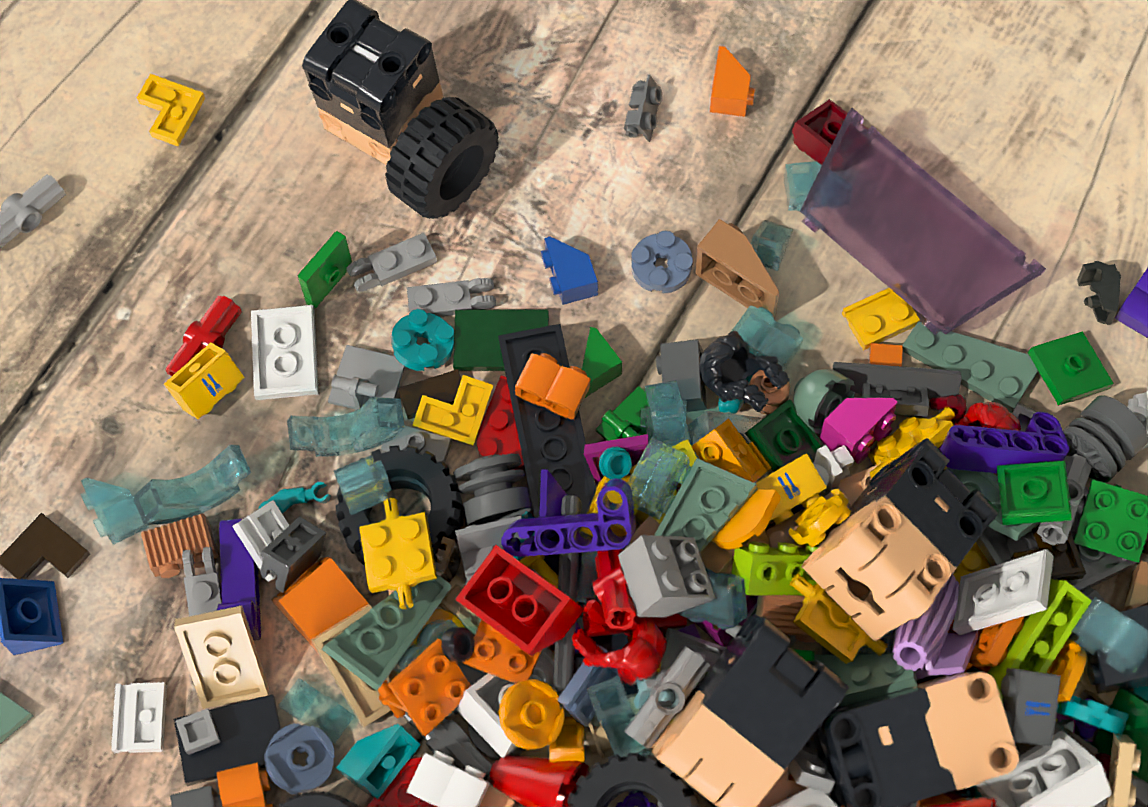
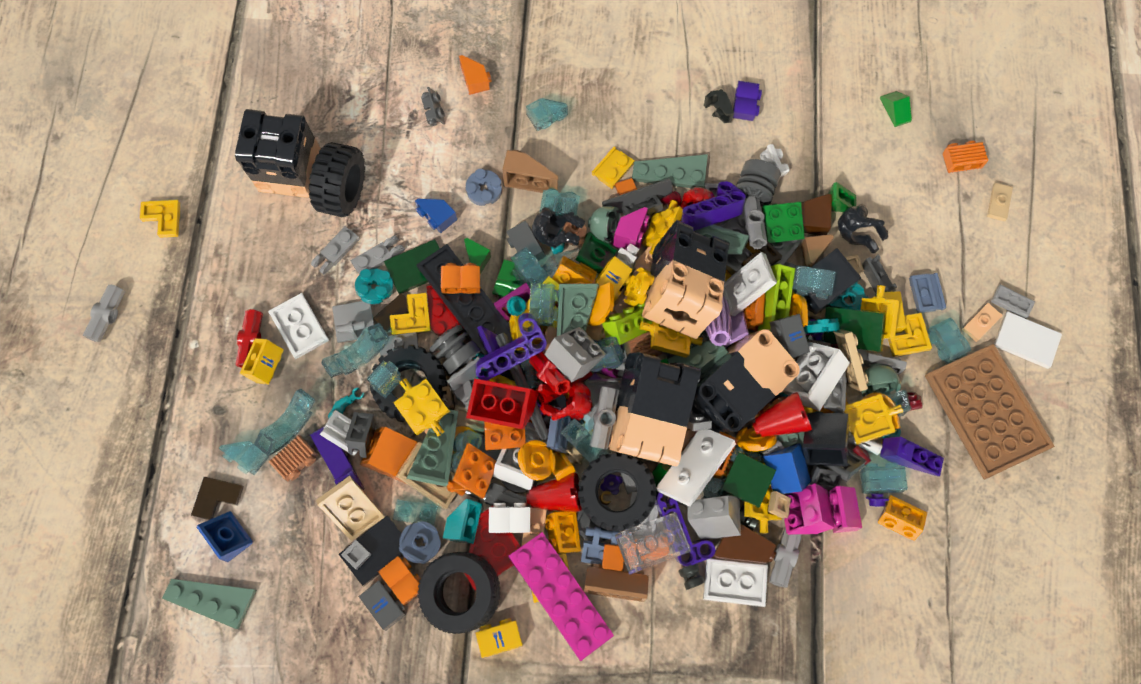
camera: 30 degrees left, 5 degrees up
(139, 717) = (318, 562): white plate -> none
(201, 590) = (320, 476): light grey hinge -> none
(325, 269) = (300, 269): green plate -> none
(458, 644) = (479, 441): black tile -> none
(771, 243) = (538, 151): clear light blue slope -> none
(818, 130) = (541, 81): dark red slope -> none
(912, 230) = (610, 114): clear purple windscreen -> none
(1034, 493) = (739, 225): green plate -> none
(1070, 368) = (722, 153): green plate -> none

